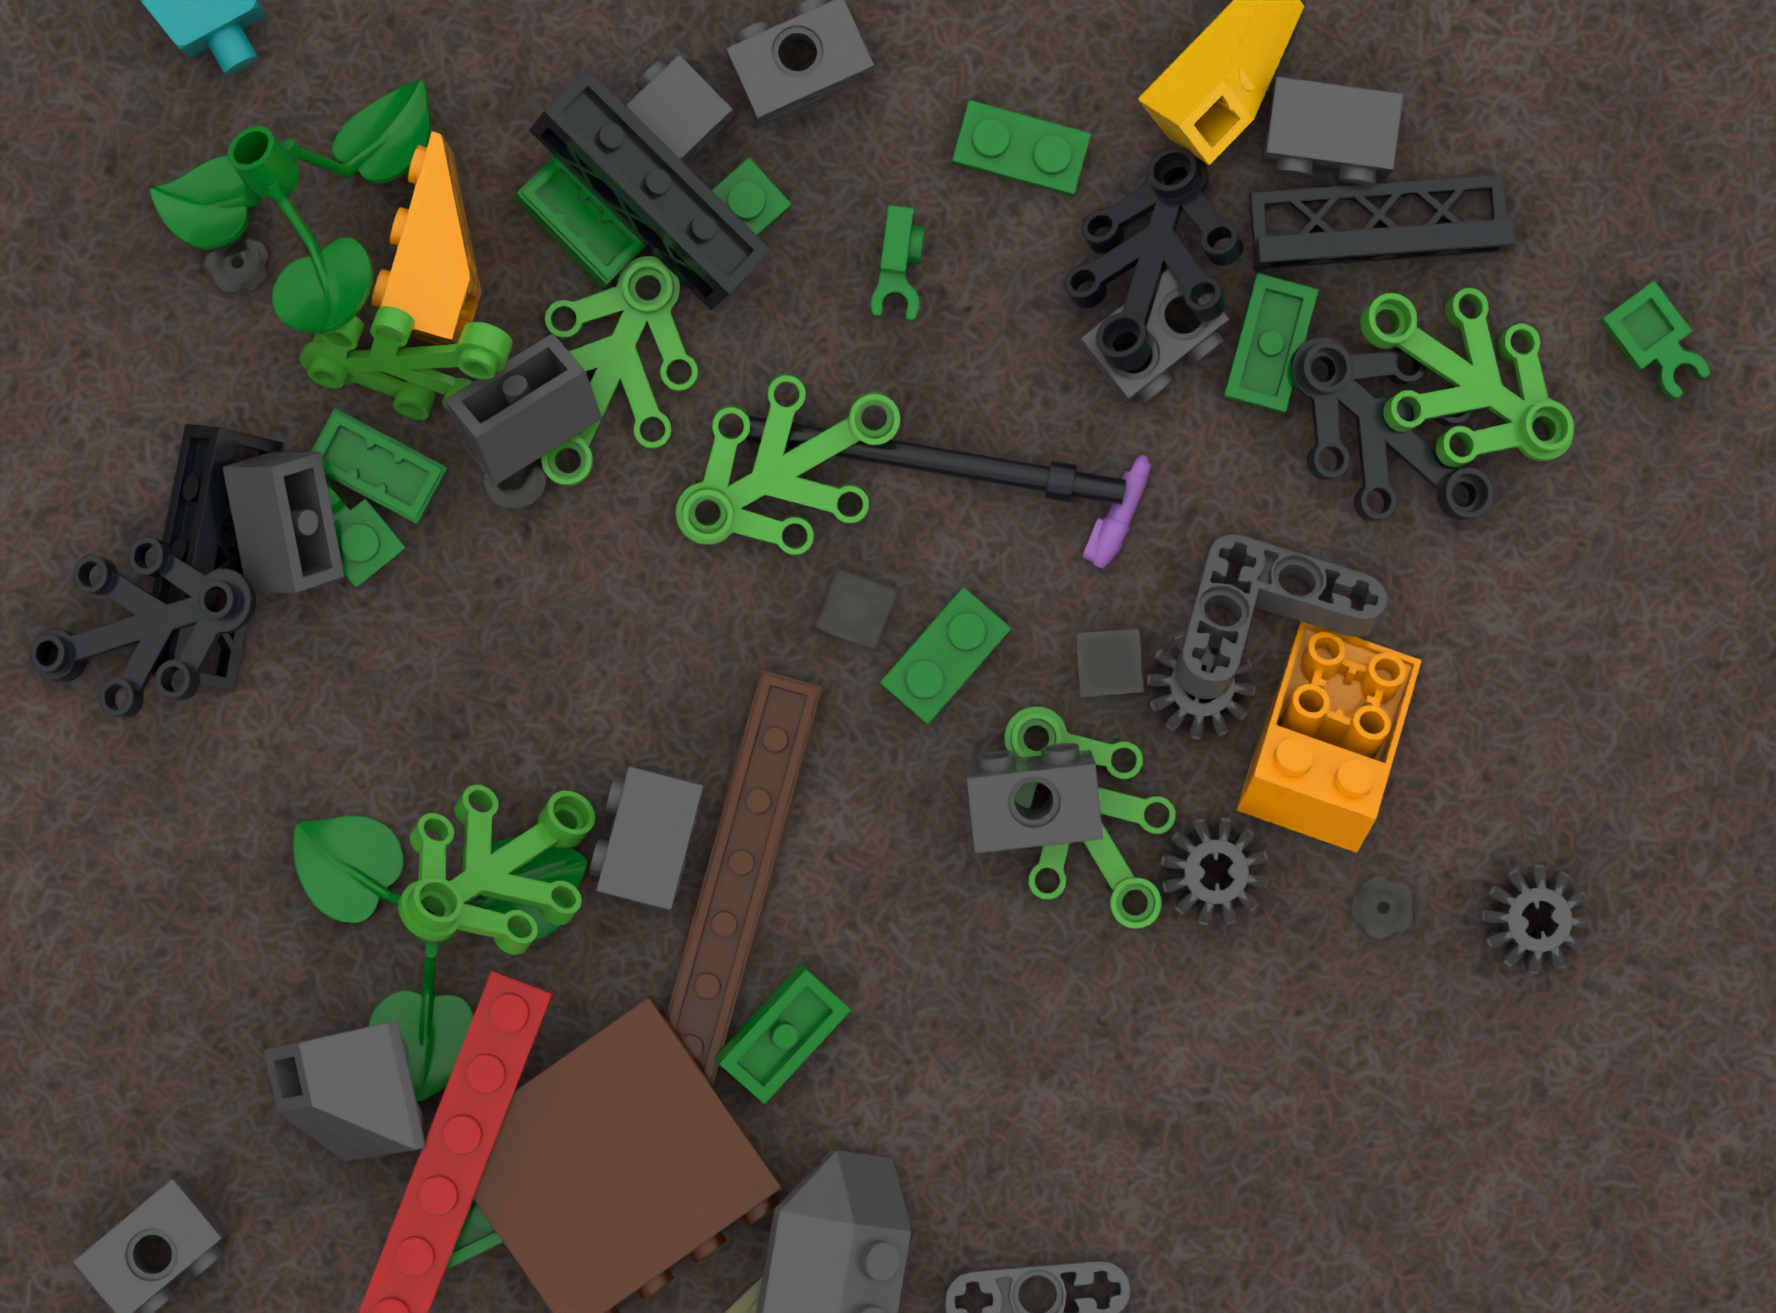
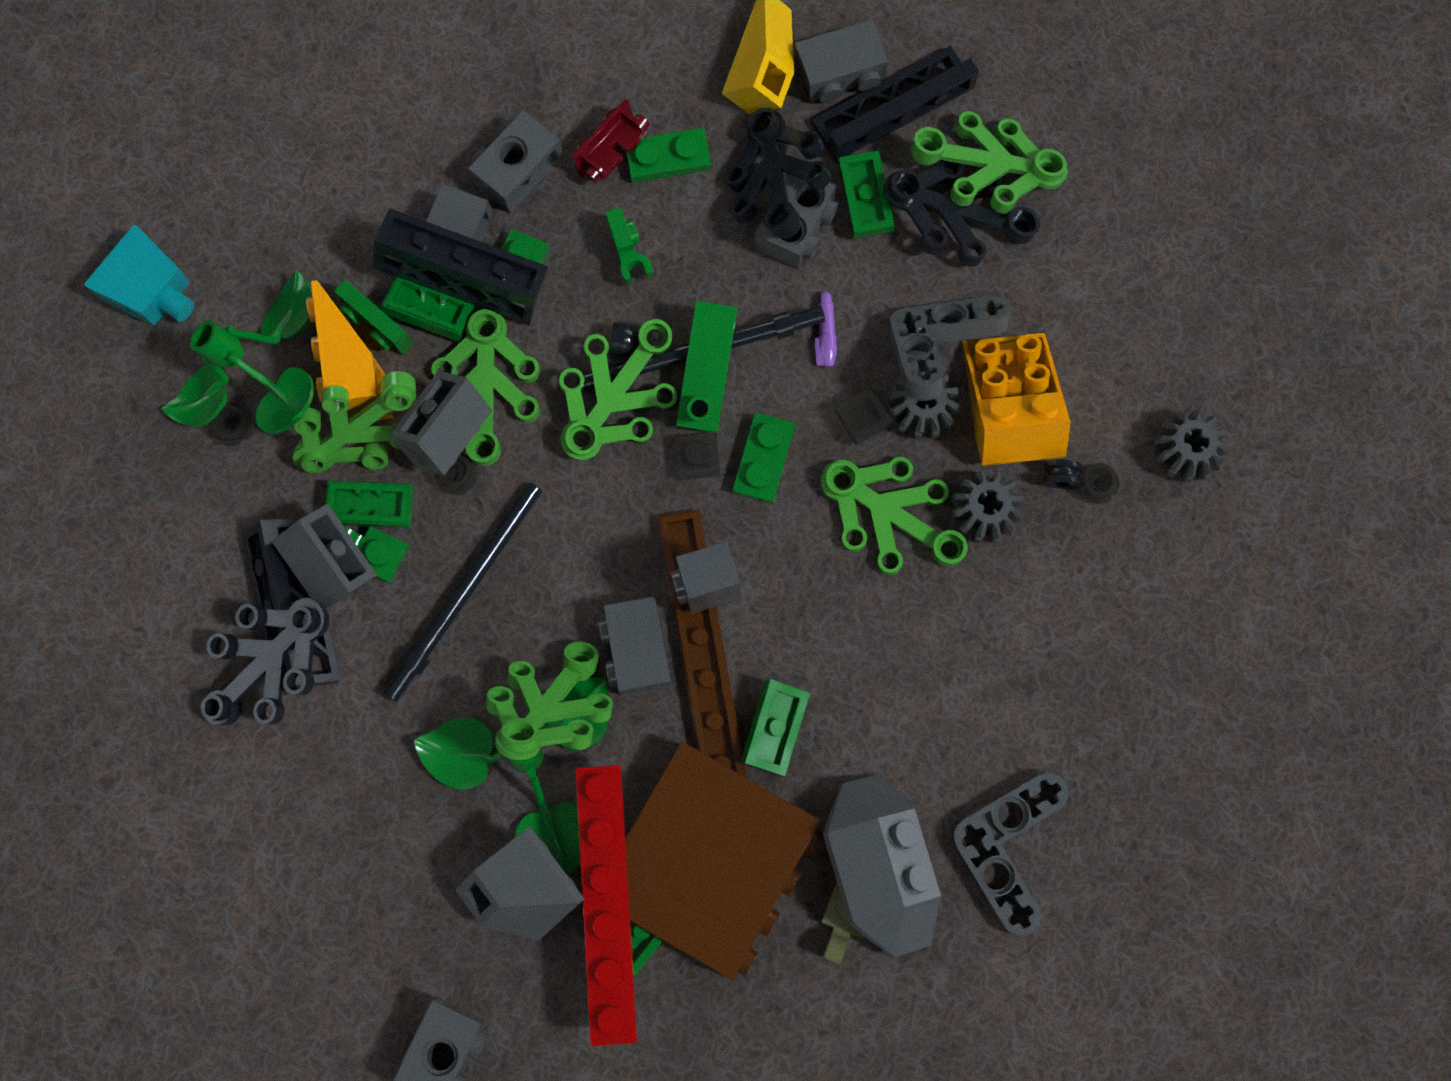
camera: 20 degrees left, 10 degrees down
(346, 712) = (415, 659): none -> black bar
(484, 177) = (359, 308): none -> green plate
(780, 800) = (706, 578): none -> dark grey brick
(831, 396) = (623, 339): none -> black hinge
(922, 101) = (596, 153): none -> dark red hinge
(926, 493) = (706, 366): none -> green piece
(1065, 817) = (883, 503): dark grey brick -> none
(1340, 874) = (1062, 474): none -> black bush
(1648, 332) = (1079, 89): green plate -> none

